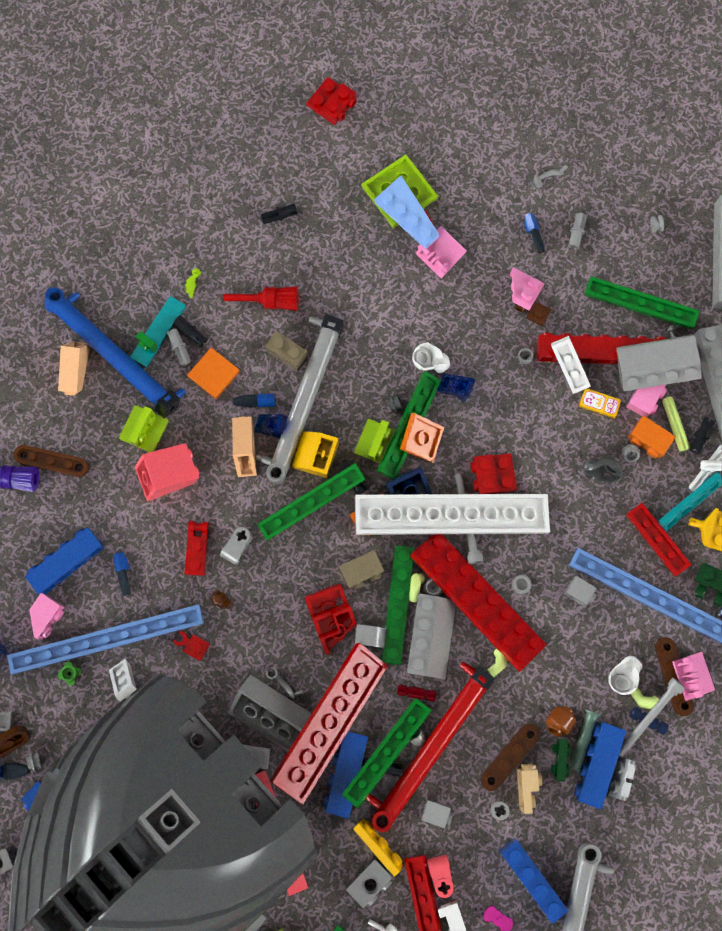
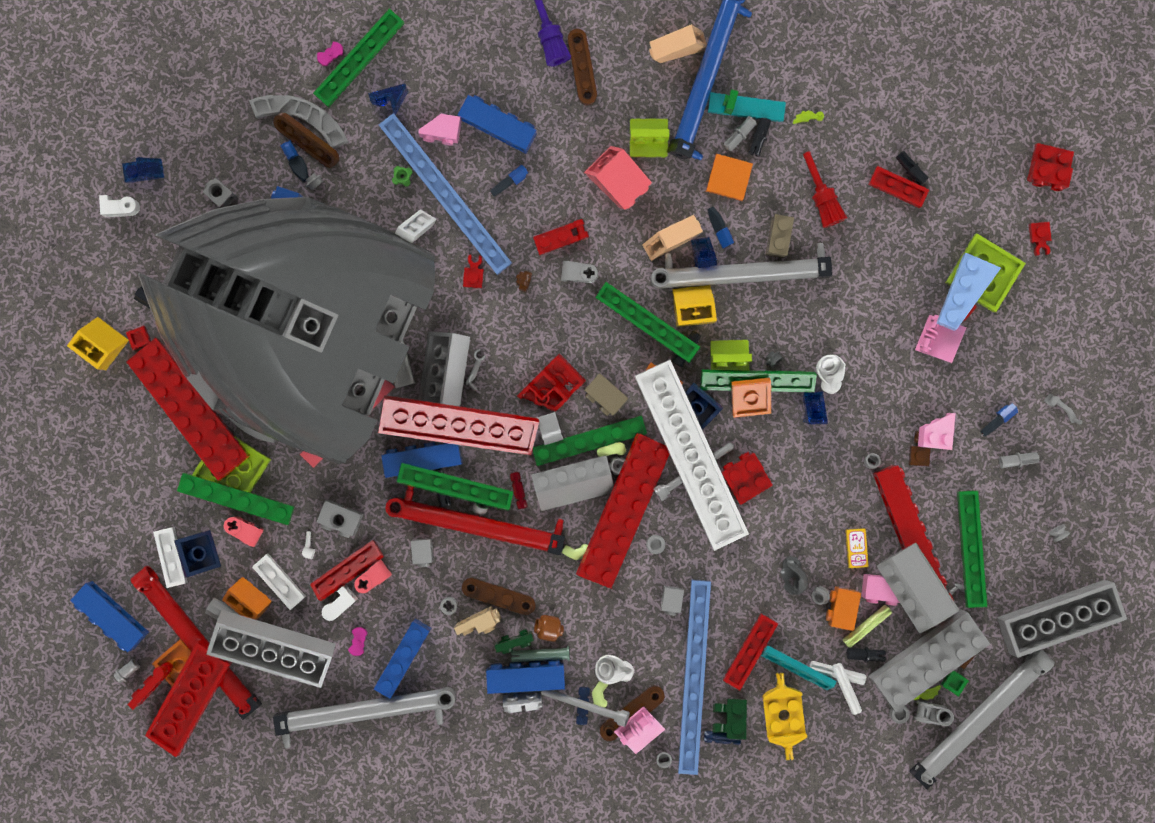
camera: 55 degrees right, 10 degrees up
(290, 232) = (898, 187): none -> red plate
(379, 846) = (373, 513): yellow plate -> none
(386, 133) = (1040, 234): none -> red plate
(570, 364) = (881, 506): white plate -> none

